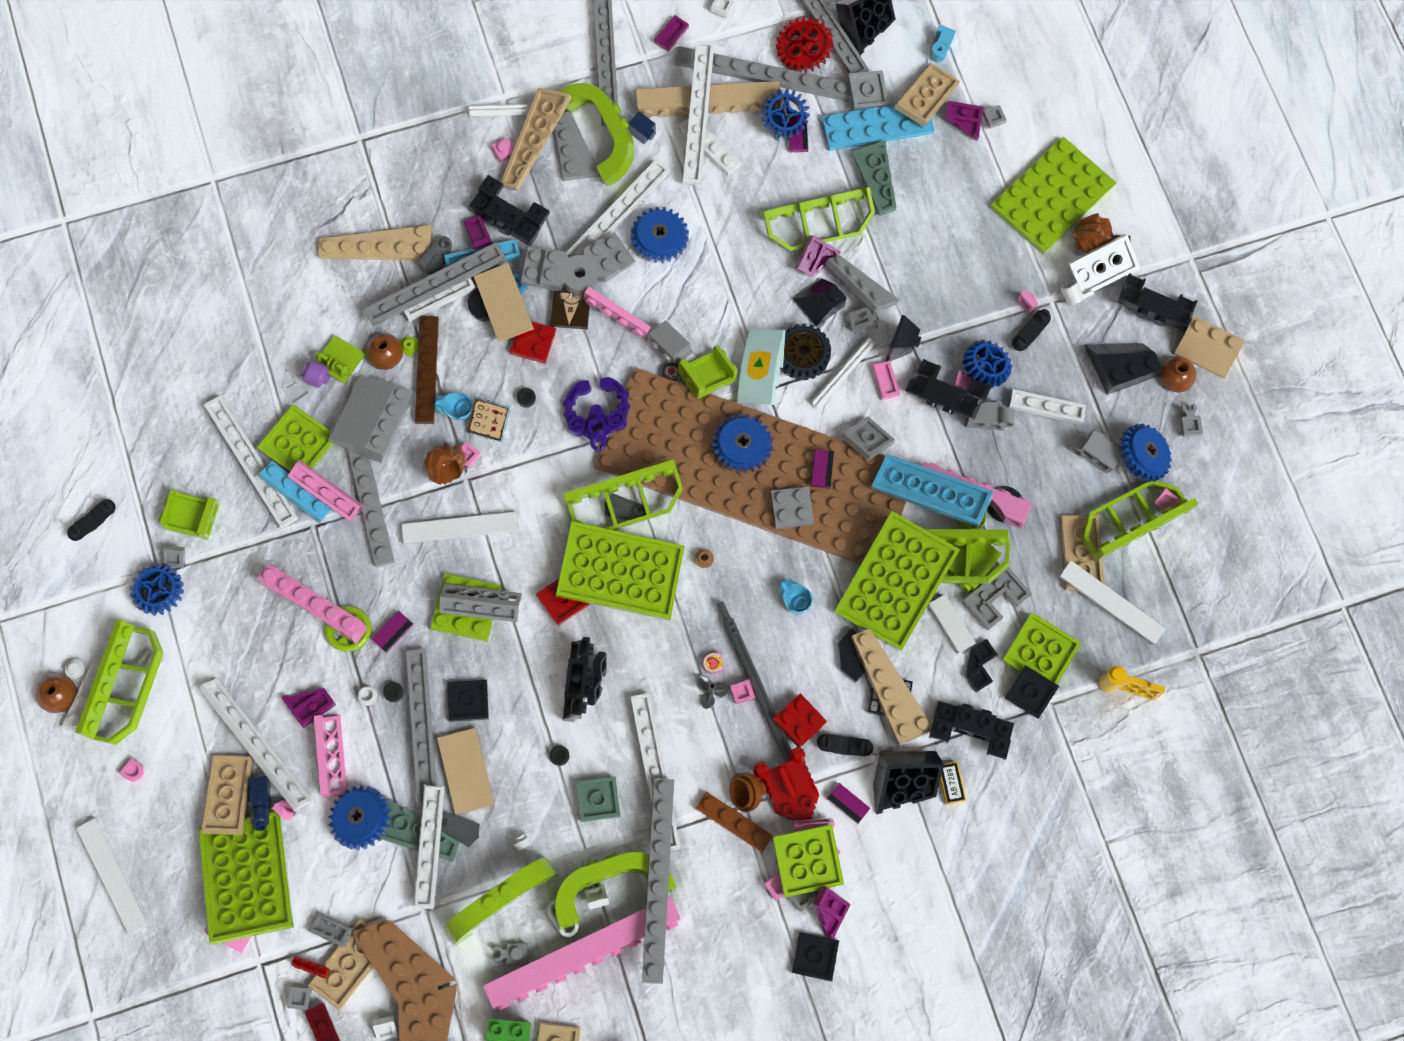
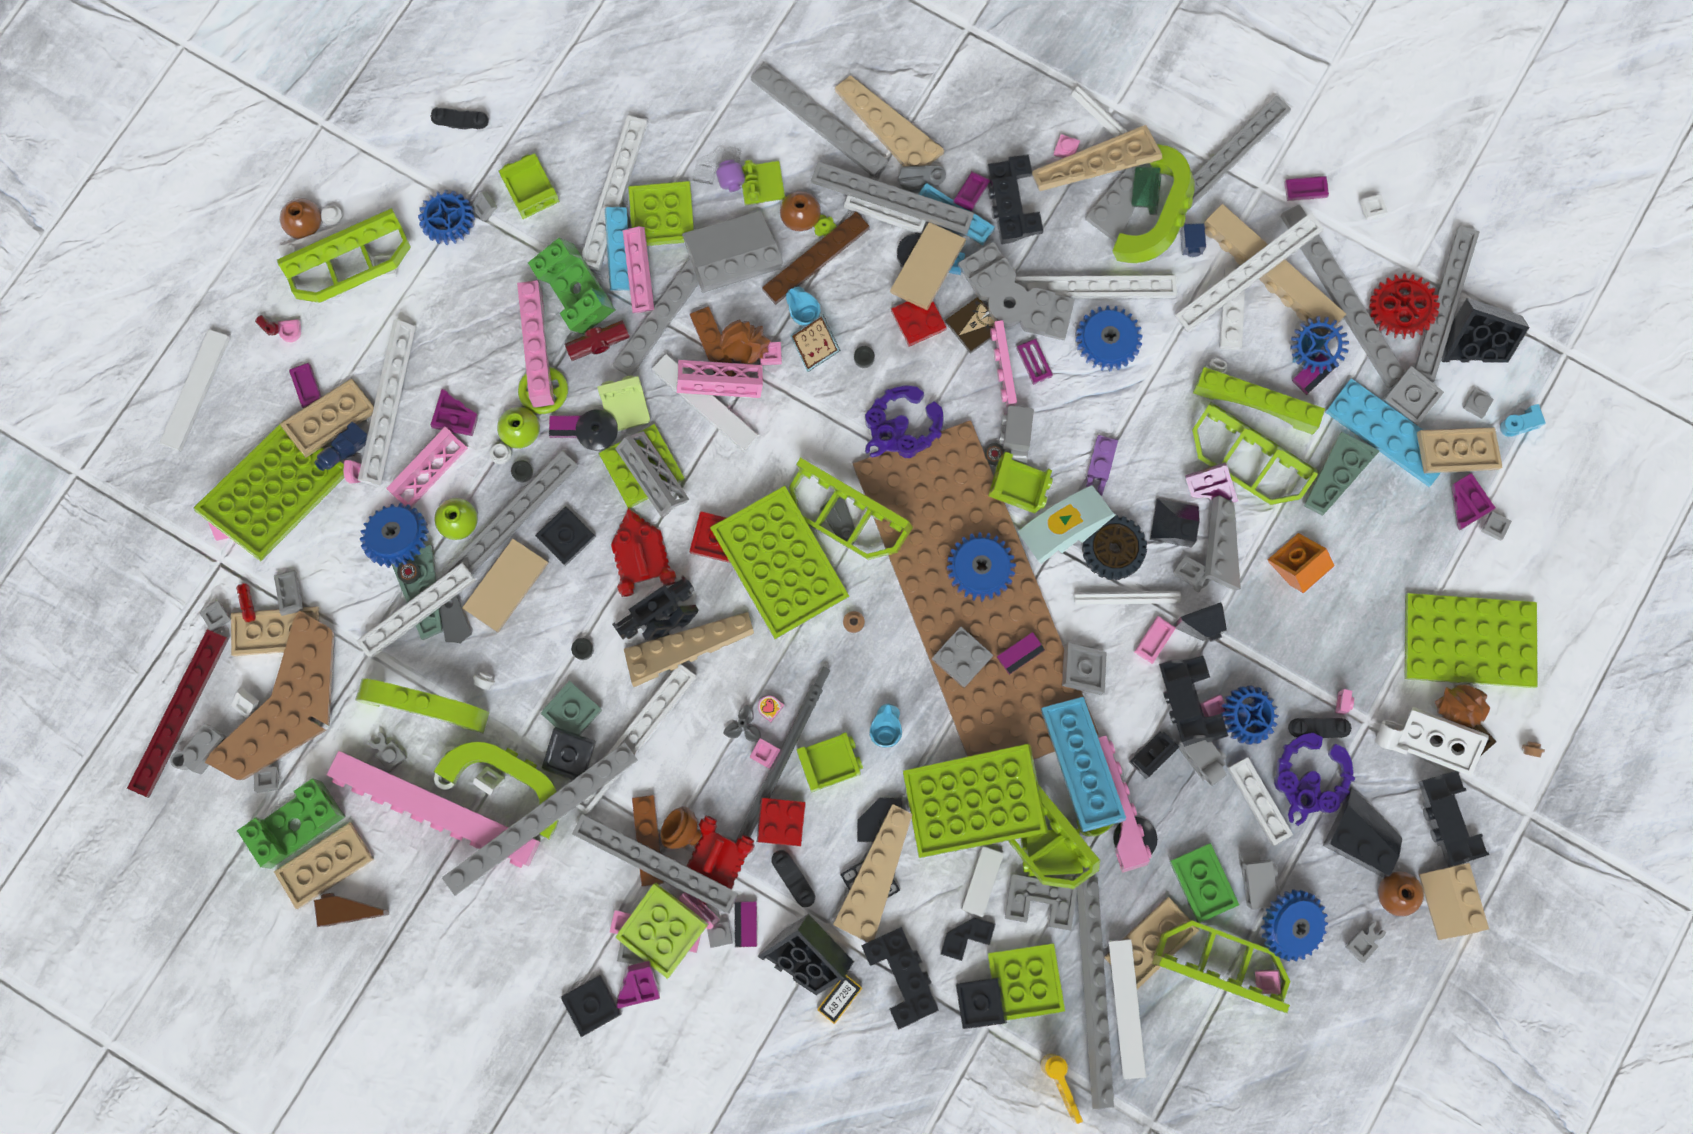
camera: 55 degrees right, 5 degrees up
(118, 782) = (269, 328): none -> dark red arm
(185, 792) = (305, 384): none -> magenta tile
(274, 541) = (563, 268): none -> bright green plate
(330, 285) = (819, 120): none -> light grey plate
(348, 561) = (597, 340): none -> dark red piece
(365, 674) = (518, 436): none -> lime piece
(388, 775) = (460, 526): none -> lime piece
(397, 829) = (408, 573): none -> pearl dark grey tile
(411, 581) = (625, 402): none -> yellowish green bracket
(418, 622) = (598, 439): none -> black dish
(427, 489) = (710, 337): none -> dark orange plate
(459, 503) = (719, 383): none -> bright pink fence
(528, 660) = (640, 554): none -> red shield
(581, 125) = (1147, 188): none -> clear green panel
(616, 697) = (666, 653): none -> tan wing
(627, 825) = (568, 753): none -> black tile
(647, 292) = (1041, 377): none -> magenta tile
(738, 311) = (1101, 461): none -> medium lavender hinge
(740, 187) = (1218, 365): none -> white plate
(756, 827) = (655, 863): none -> light grey plate
(786, 654) = (829, 762): none -> lime panel
(813, 167) = (1224, 387): none -> lime arch
(842, 827) = (719, 935): none -> light grey plate
(906, 58) = (1478, 403): none -> light grey plate
(915, 248) = (1301, 562): none -> orange slope
(961, 444) = (1154, 754): none -> black hinge
(1062, 368) = (1309, 784): none -> dark purple piece
(1070, 485) = (1204, 883): none -> bright green plate
(1087, 615) = (1095, 994): none -> light grey plate
(1153, 218) = (1533, 749): none -> medium nougat plate

